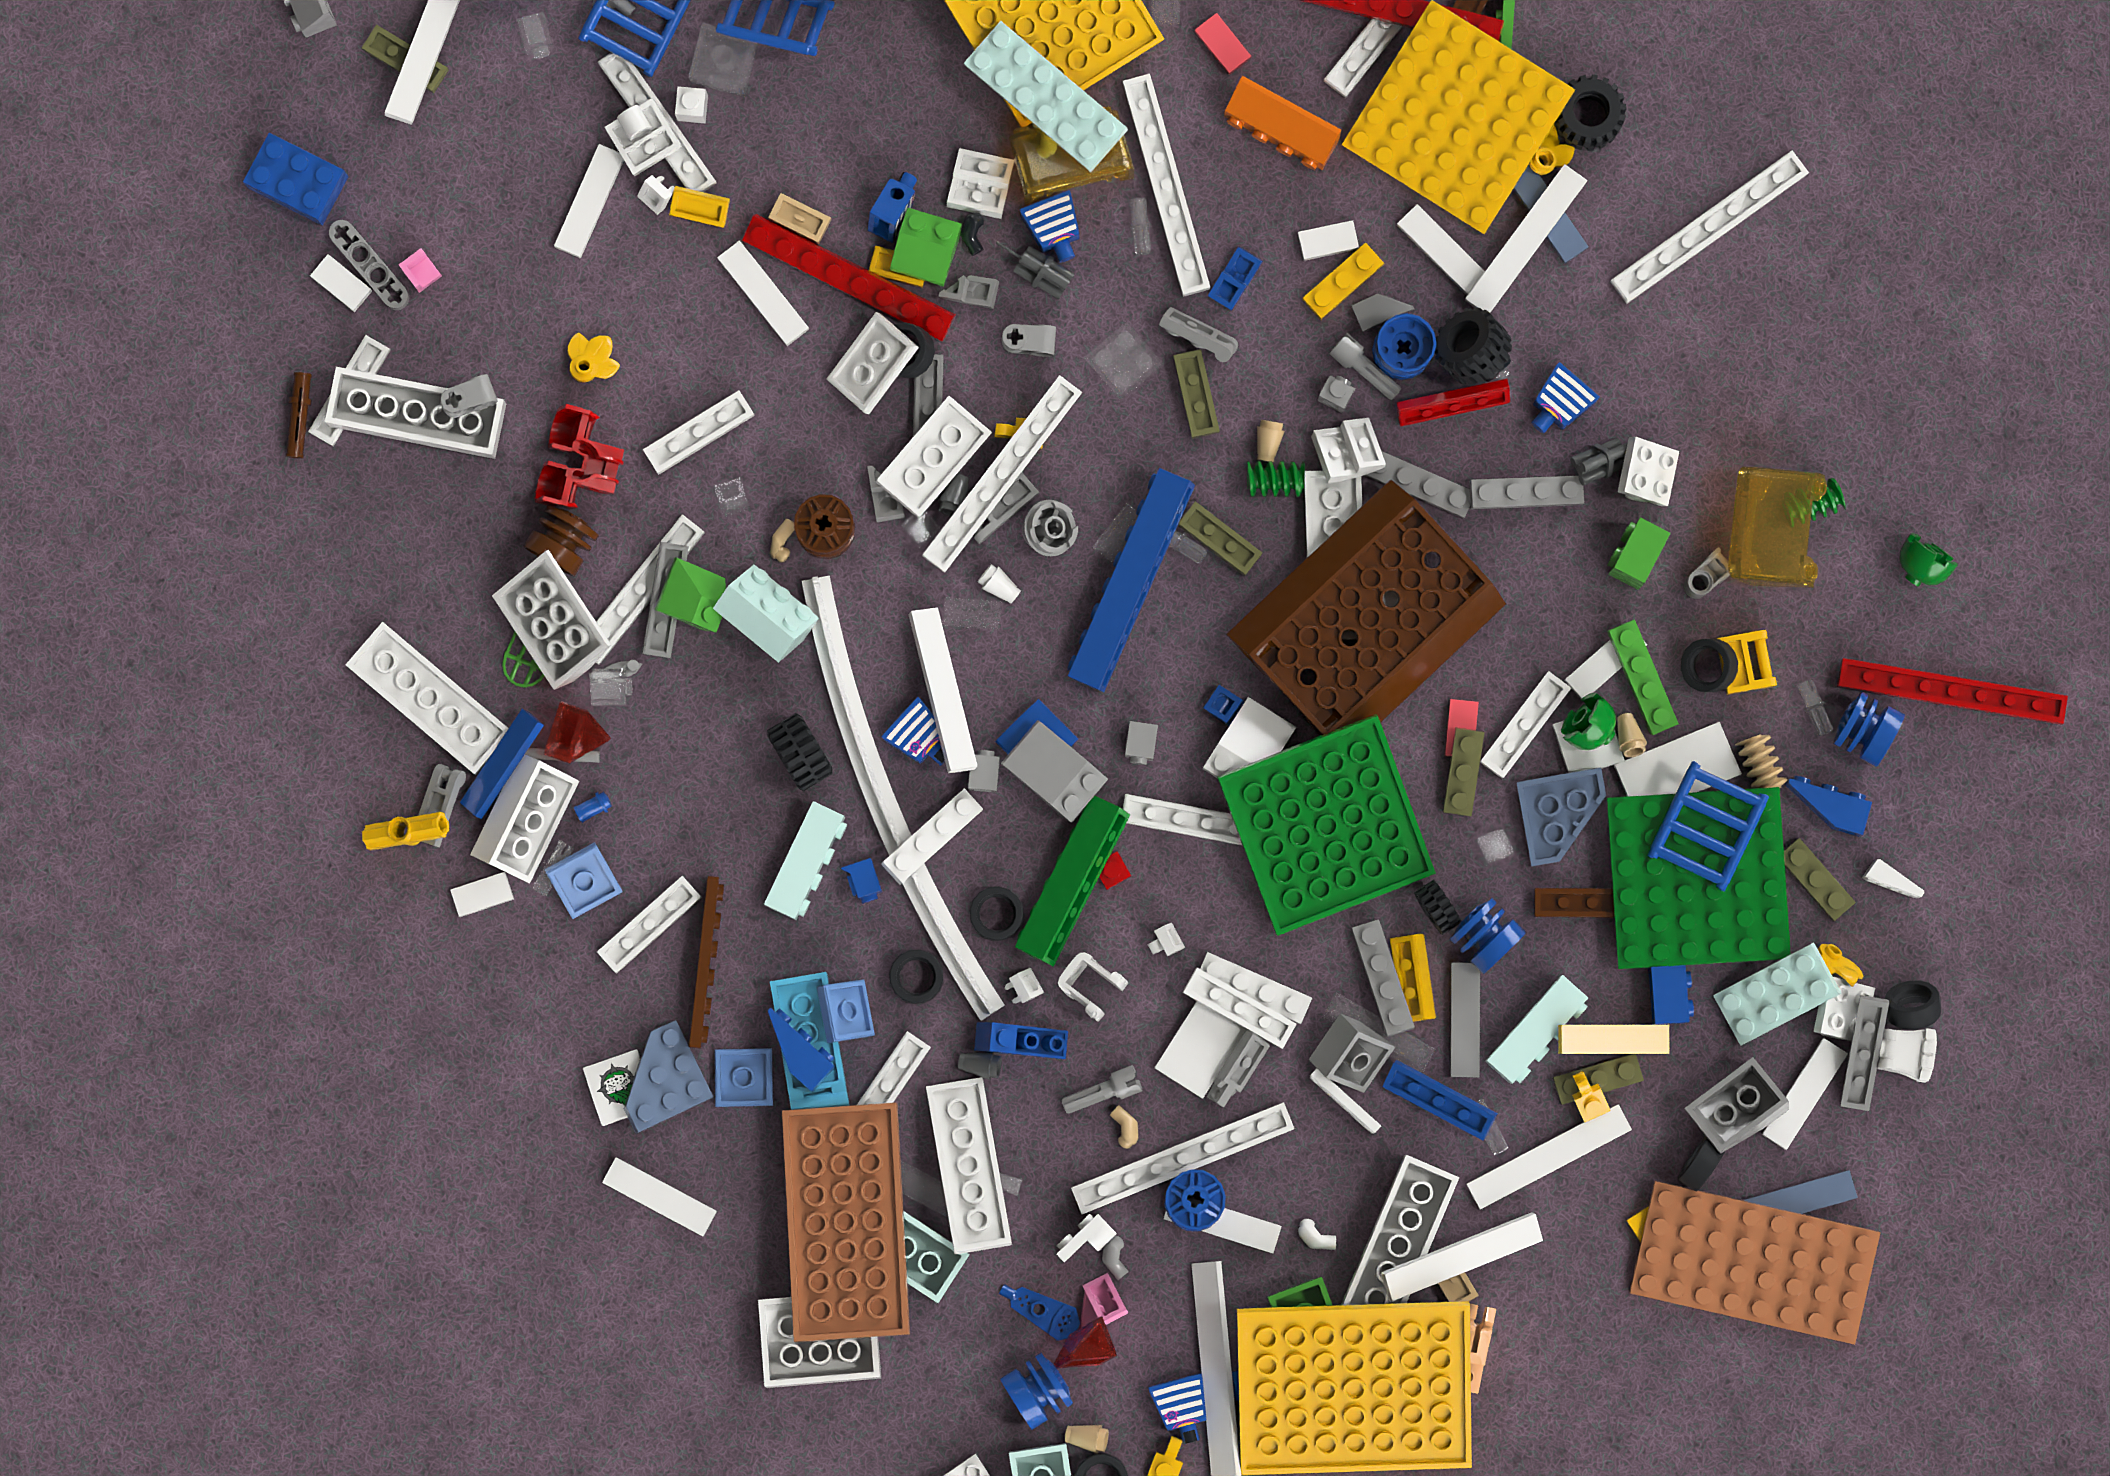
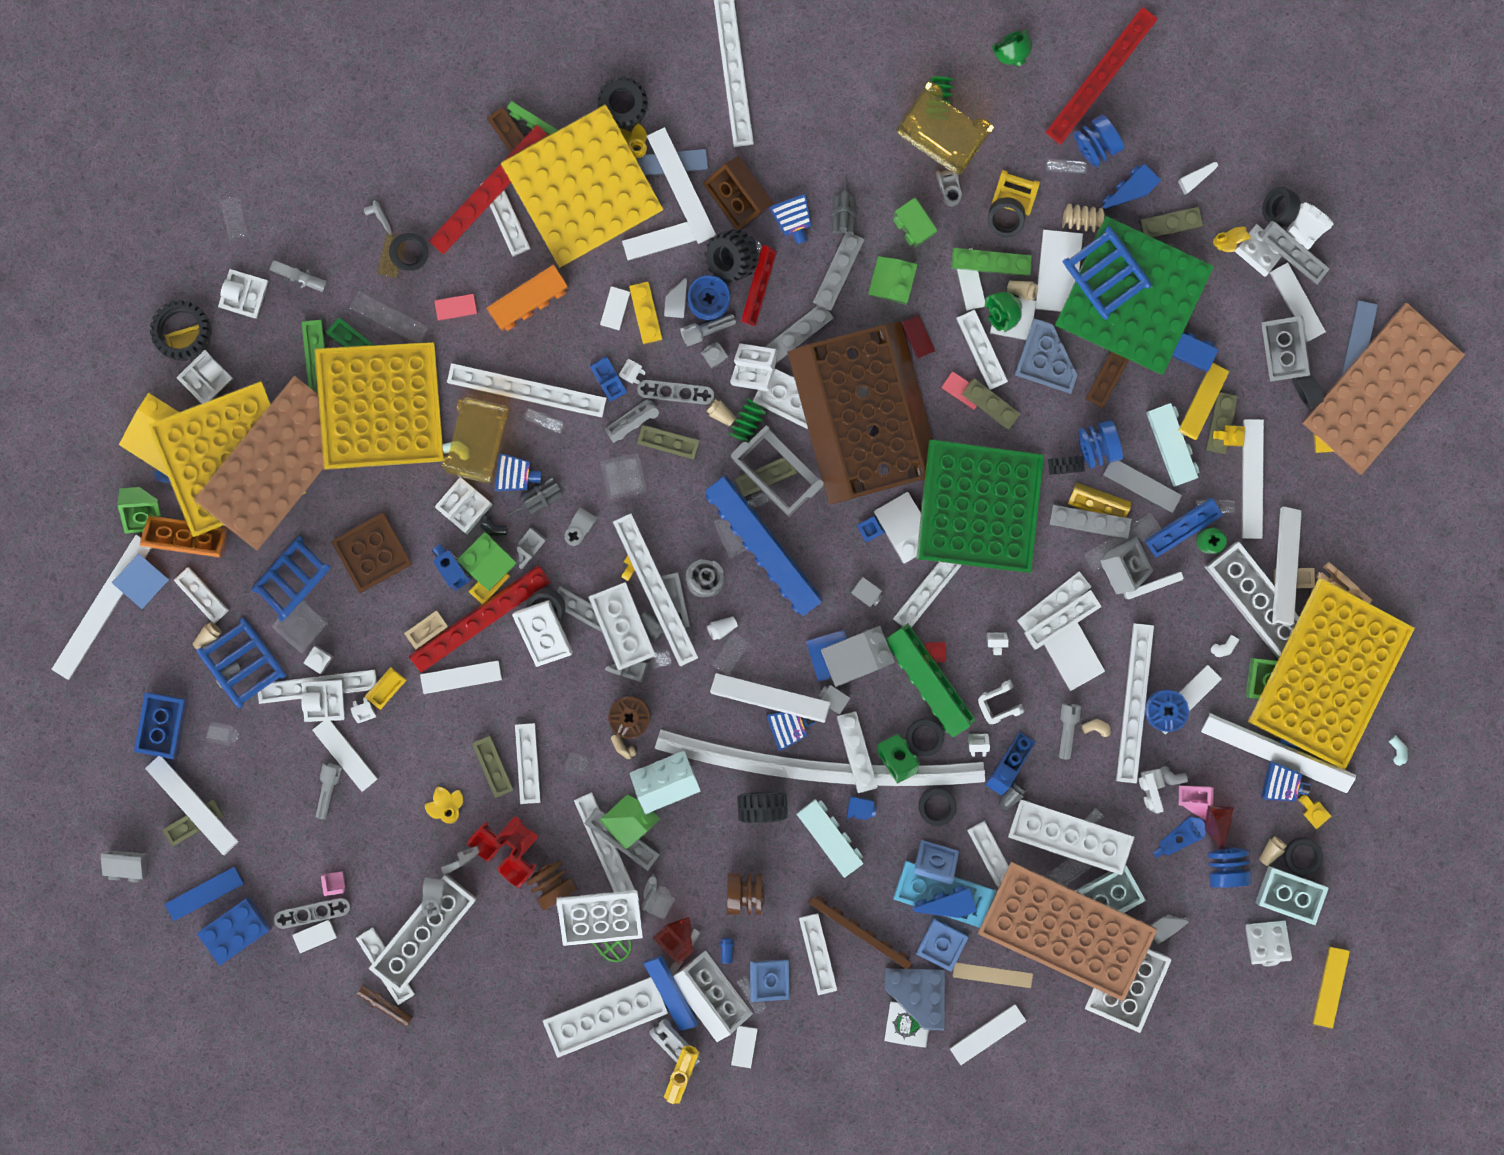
camera: 65 degrees left, 5 degrees up
(323, 119) = (204, 893): none -> blue tile
(537, 415) = (464, 857): none -> light grey slope
(551, 196) = (329, 777): none -> light grey piece
(671, 391) = (492, 766): none -> olive plate
(677, 789) = (744, 893): none -> reddish brown wheel
(738, 1163) = (992, 975): none -> tan sticker
(860, 100) = (371, 552): none -> reddish brown plate
(917, 1352) = (1167, 927): none -> light grey slope
(939, 900) = (898, 769): none -> green brick
(1045, 96) = (434, 437): light aqua plate -> none
(1238, 1068) = (1098, 639): light grey hinge -> none
(1239, 492) = (745, 448): none -> light grey piece
(1259, 300) = (630, 371): none -> white tile
(1260, 372) = (675, 395): none -> light grey beam
(1430, 1141) = (1214, 547): none -> green piece
(1495, 846) = (1046, 409): clear slope -> none
(1498, 636) = (918, 337): none -> dark red slope
(1552, 566) = (892, 279): none -> bright green slope
(1555, 315) = (738, 193): none -> reddish brown slope
(1648, 472) = (866, 189): white plate -> none
(1777, 994) = (1230, 285): light aqua plate -> none

